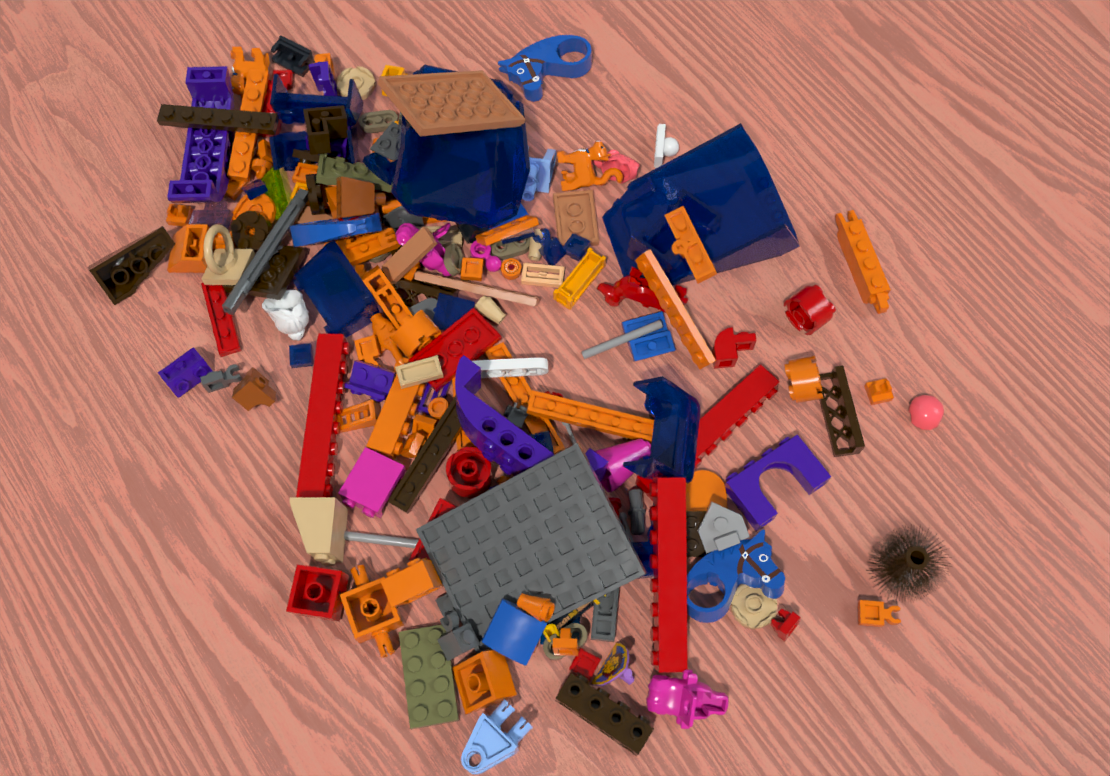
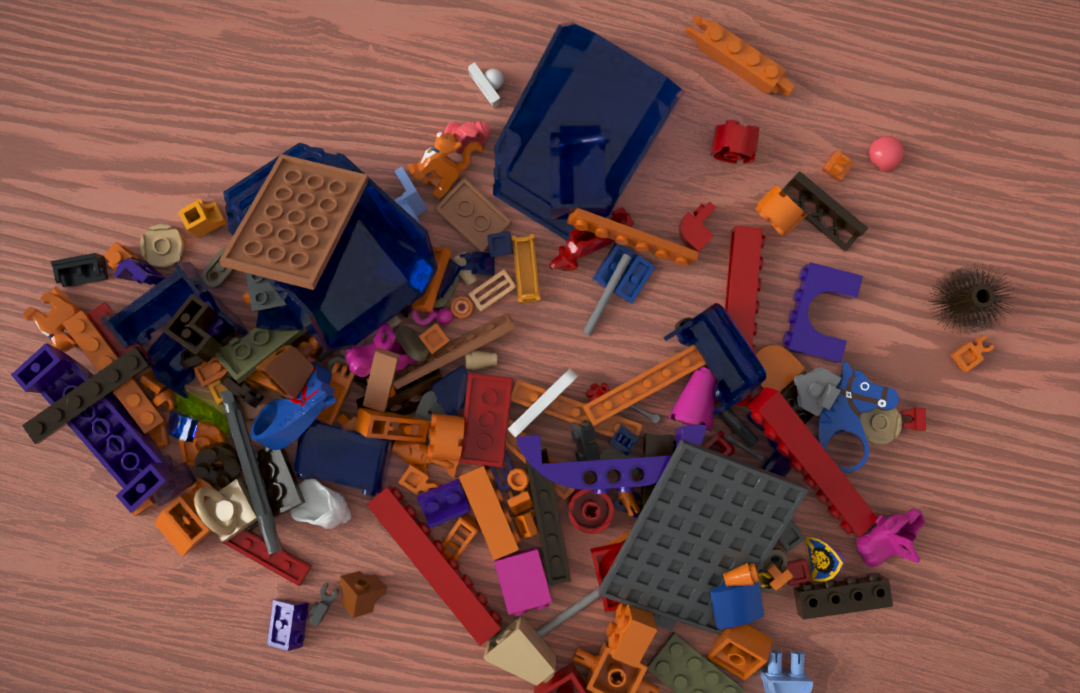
camera: 45 degrees left, 20 degrees up
(127, 267) = (147, 586): dark brown wedge -> none
(285, 76) = (93, 297): red tile -> none
(301, 355) = (368, 532): clear blue tile -> none
(419, 372) = (479, 466): tan tile -> none
(457, 639) = (697, 640): dark grey brick -> none
(543, 59) = (303, 83): blue animal -> none
(690, 245) = (601, 172): orange hinge -> none

